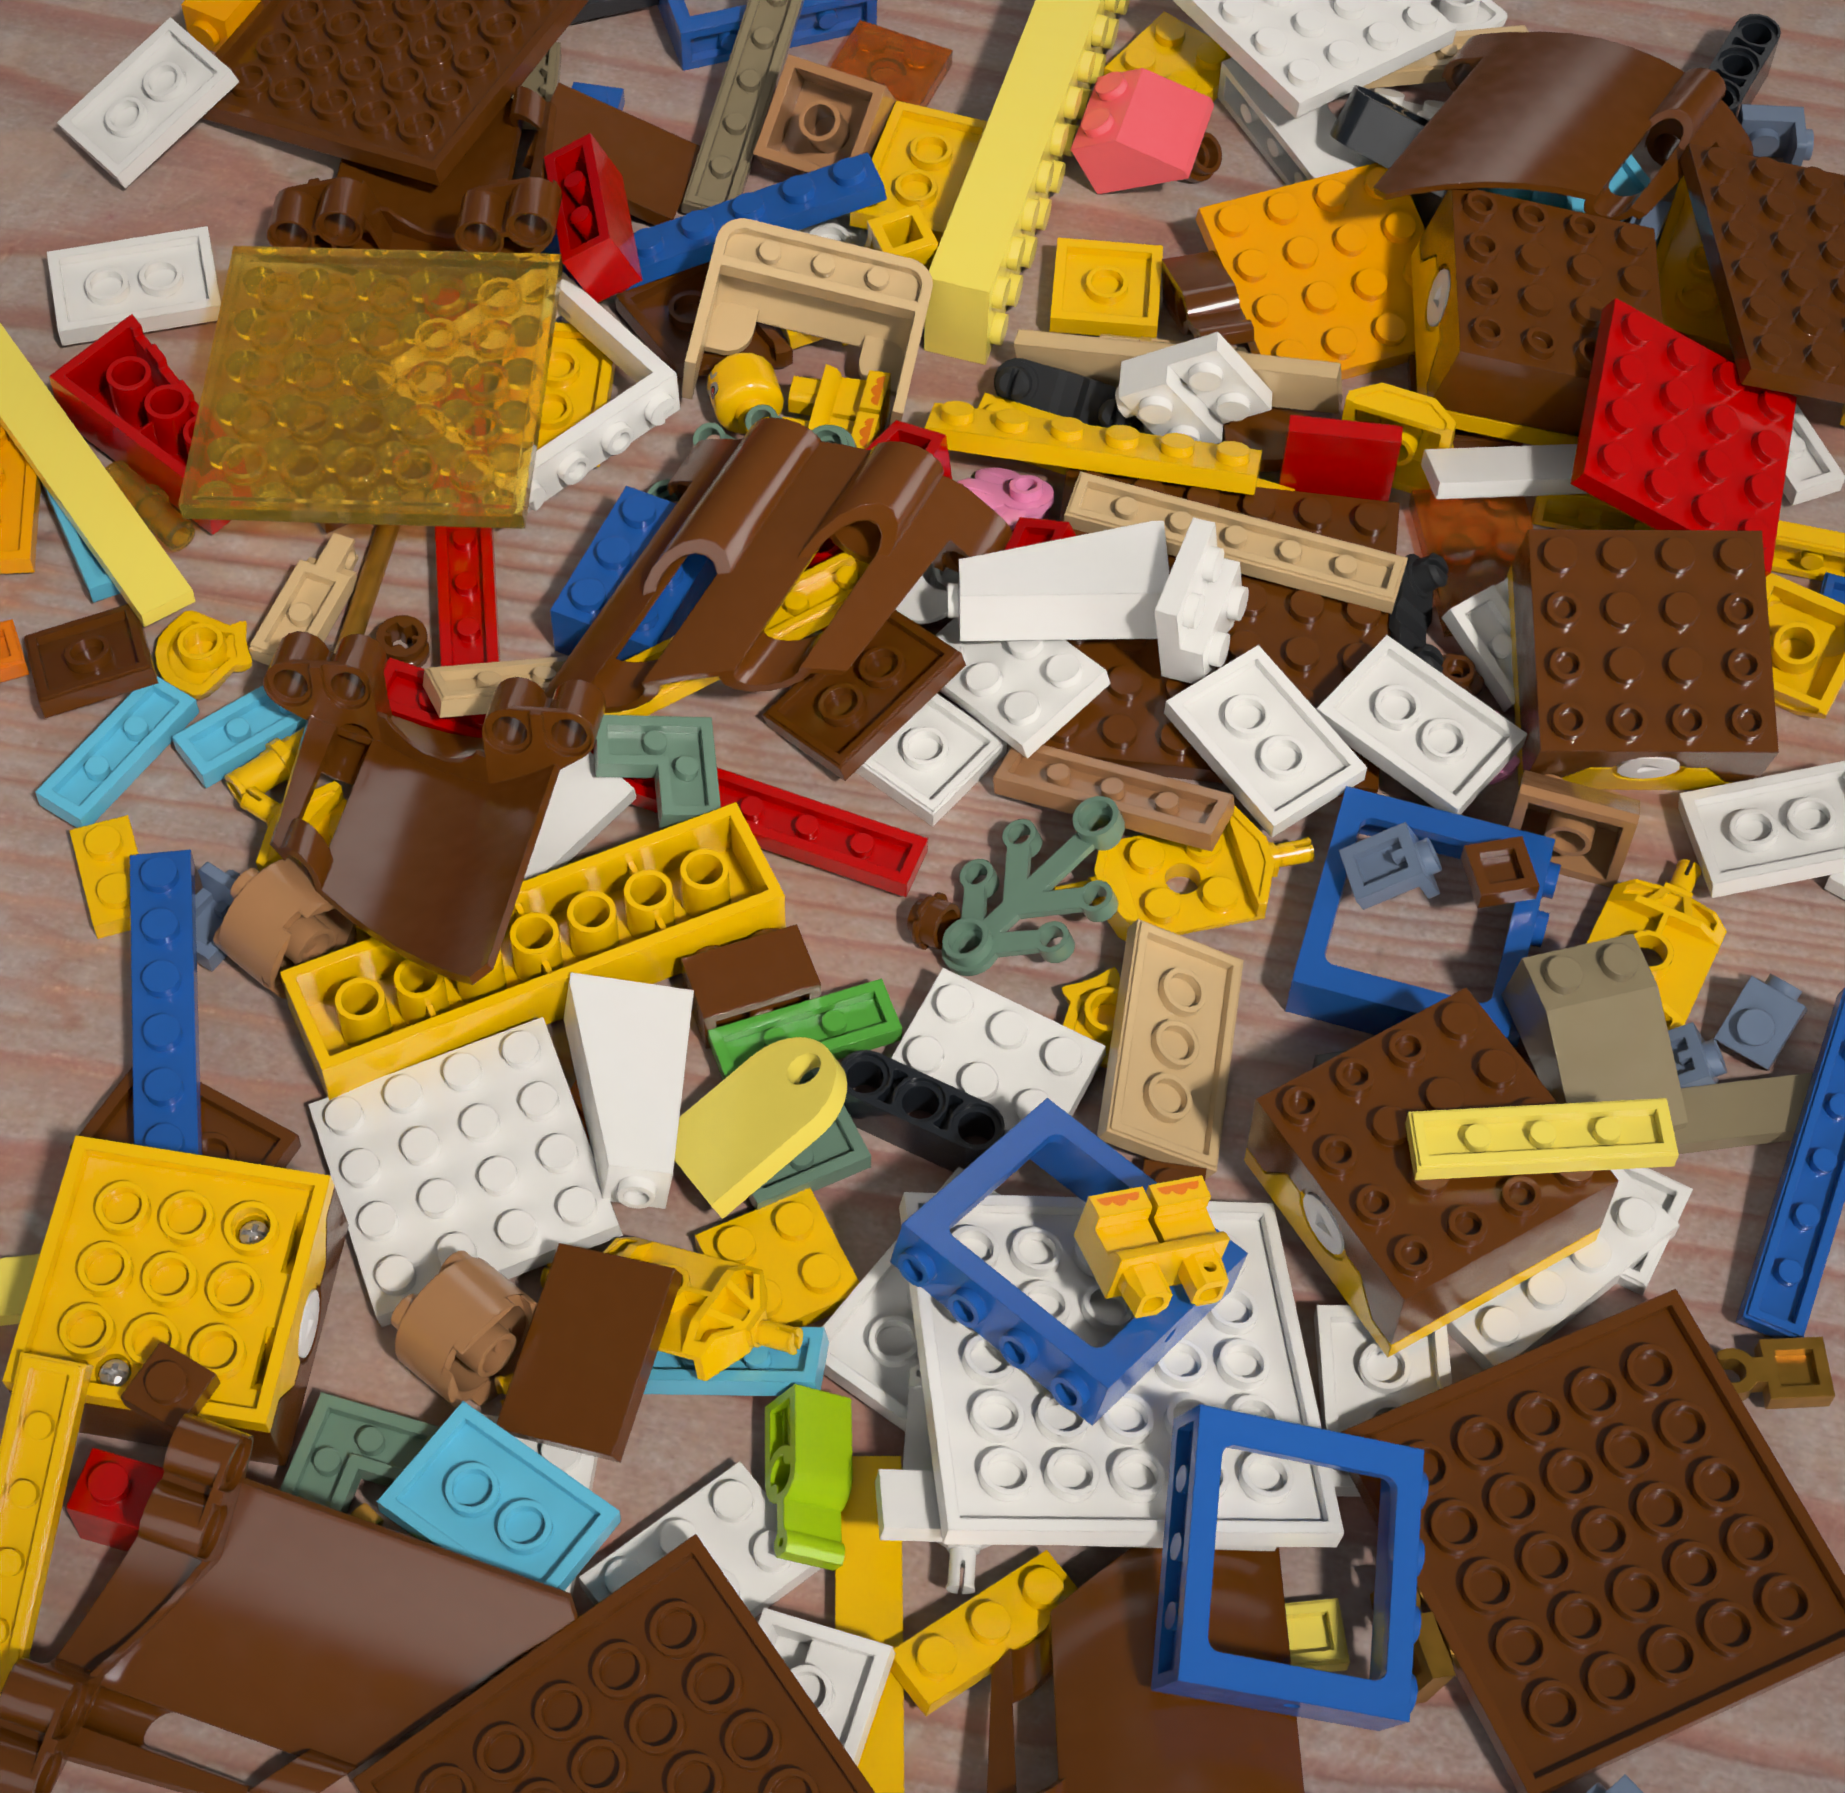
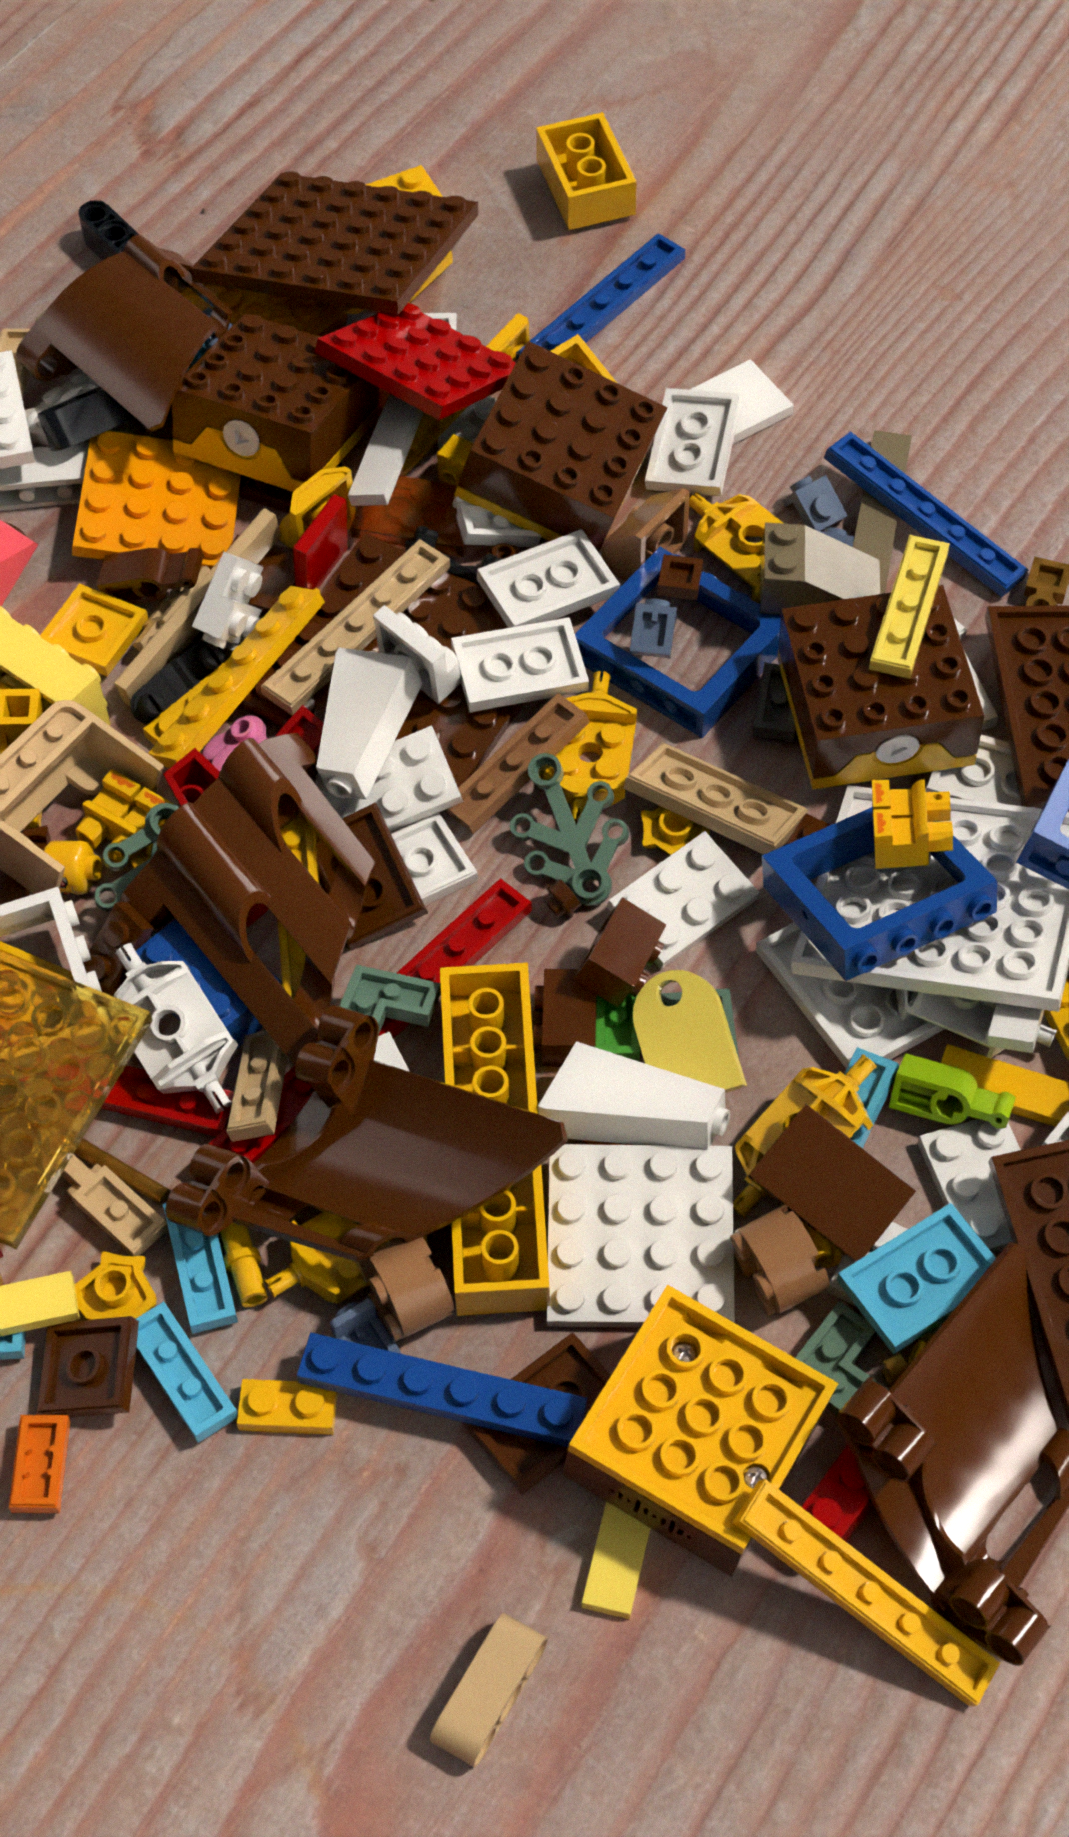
camera: 65 degrees left, 0 degrees up
(169, 1388) = (797, 1433): reddish brown plate -> none
(408, 630) = (160, 1153): reddish brown bush -> none
(518, 596) = (201, 1046): none -> white plate
(647, 470) = (121, 927): none -> reddish brown plate
(798, 1254) = (773, 1061): yellow plate -> none
(847, 996) = (621, 952): none -> reddish brown brick
(907, 1090) = (715, 936): black beam -> none
(1778, 132) = (180, 236): sand blue bracket -> none

